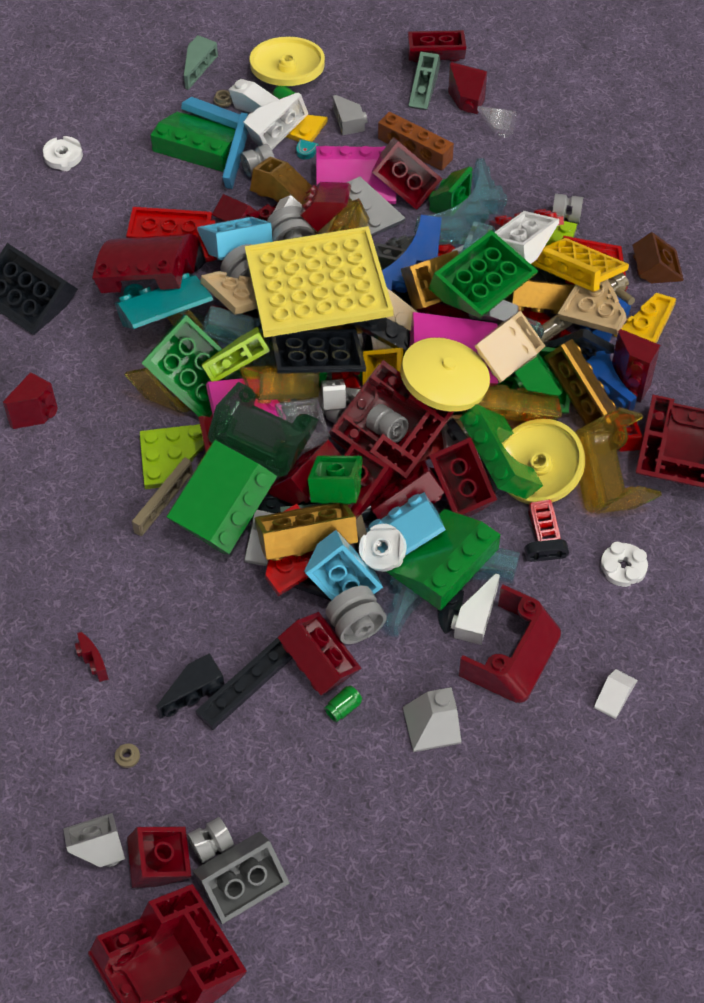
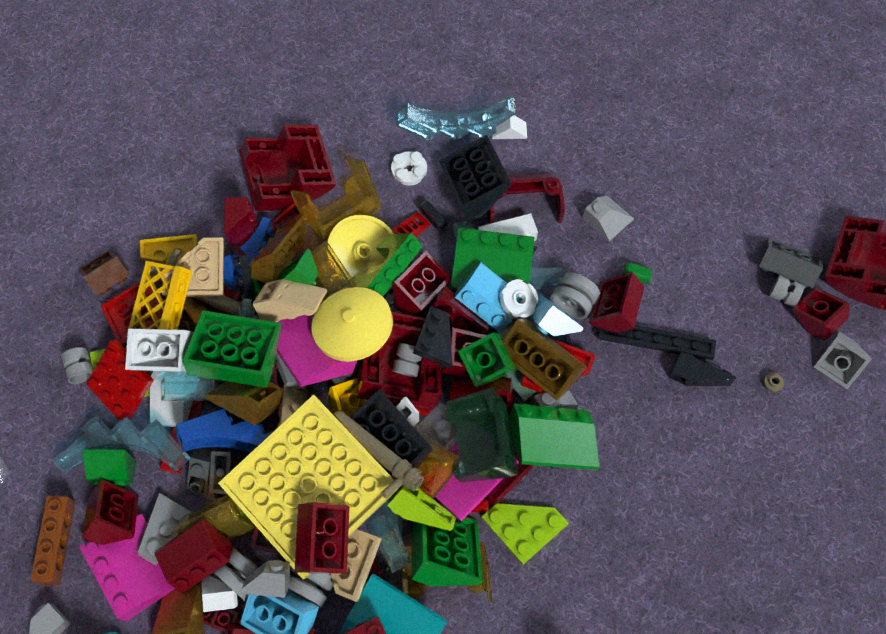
camera: 125 degrees left, 10 degrees up
(92, 656) = (729, 455): dark red slope -> none
(162, 497) = (568, 499): dark tan tile -> none
(260, 226) = (268, 580): none -> light grey slope
(261, 261) = (322, 538): none -> dark red slope
(275, 339) = (400, 469): none -> dark tan cylinder
(390, 444) = (435, 338): none -> black wing
(559, 589) = (476, 177): none -> black slope
(645, 637) = (455, 125): none -> clear light blue arch

